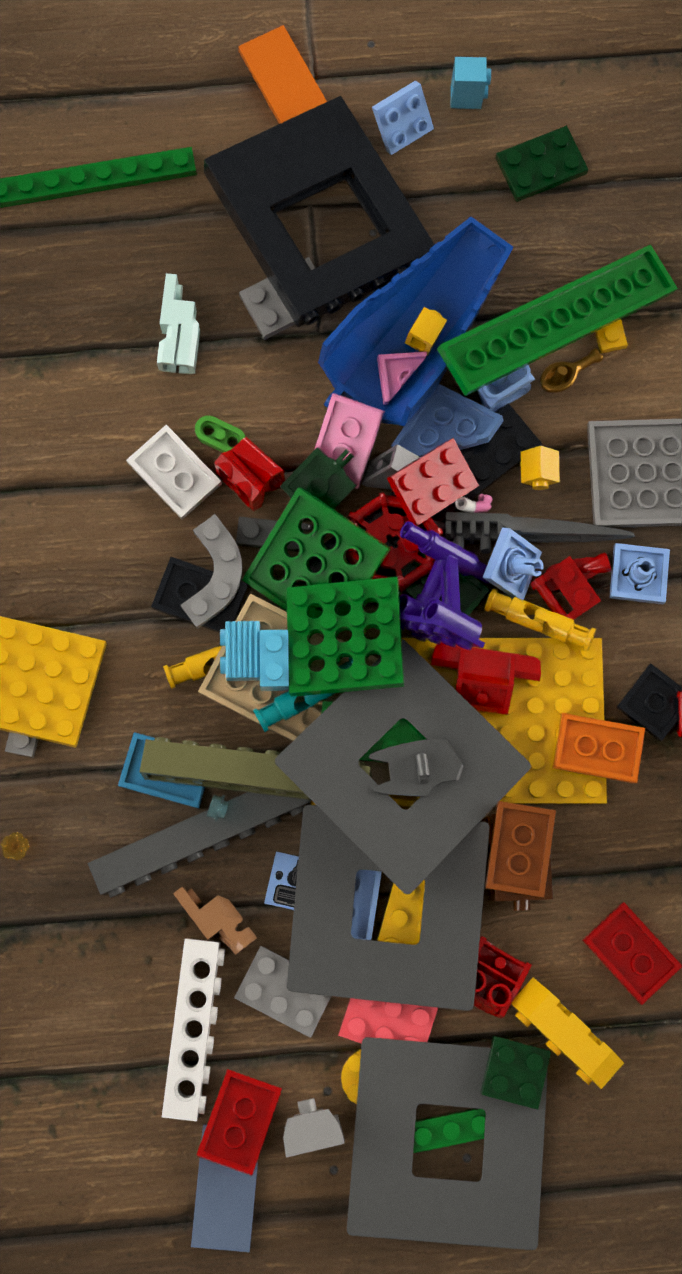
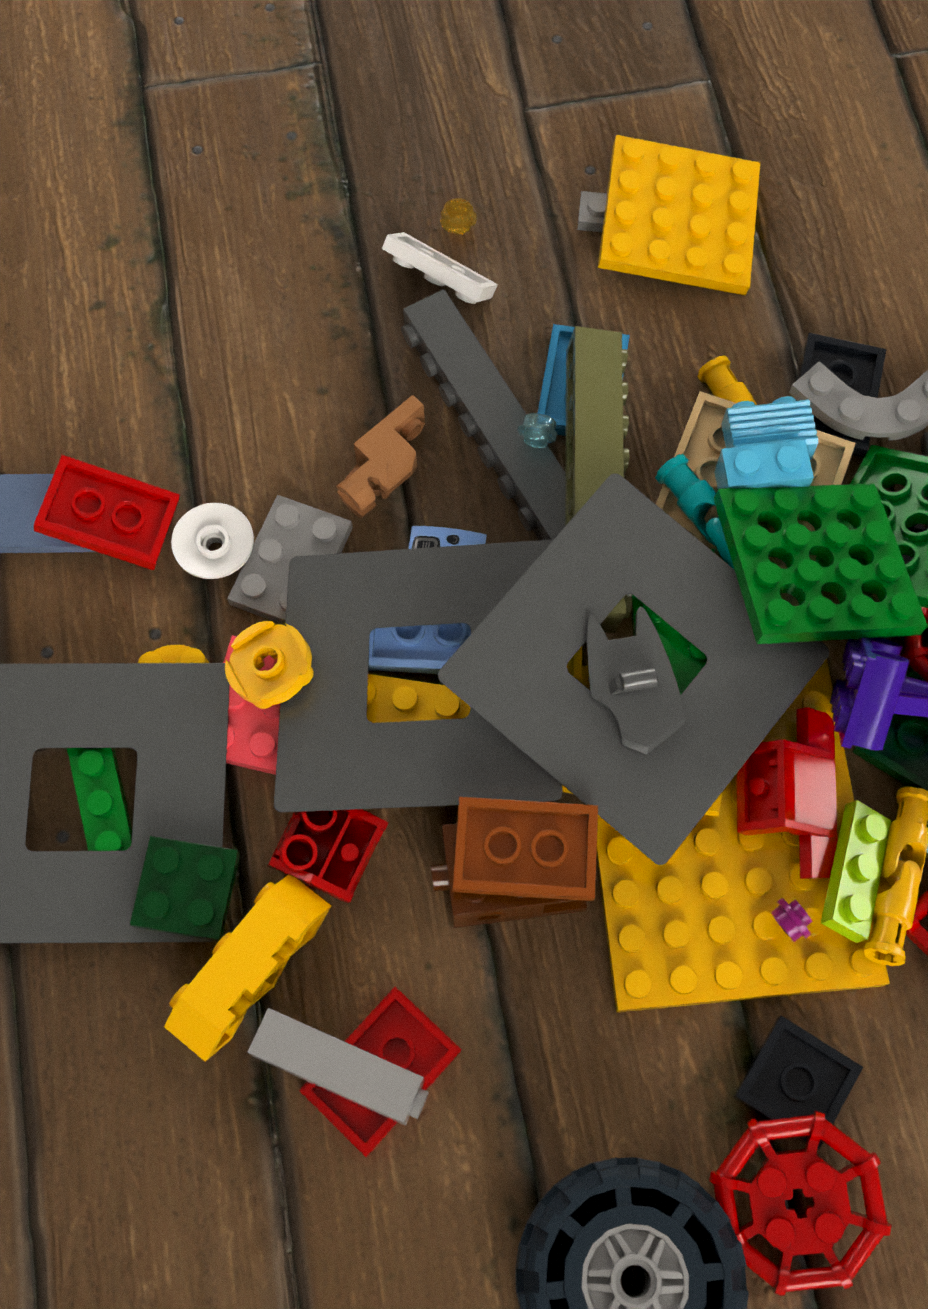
camera: 90 degrees right, 10 degrees down
(59, 864) = (439, 268): none -> white plate
(176, 1104) = (255, 433): white brick -> none
(255, 1057) = (206, 526): none -> white dish
(311, 1129) = (96, 601): light grey brick -> none
(363, 1023) = (284, 679): none -> yellow plate
(537, 646) = (856, 872): none -> lime plate
(565, 690) = (792, 919): none -> magenta plate
(598, 748) = (706, 986): orange tile -> none
(634, 978) = (339, 1067): none -> light grey brick

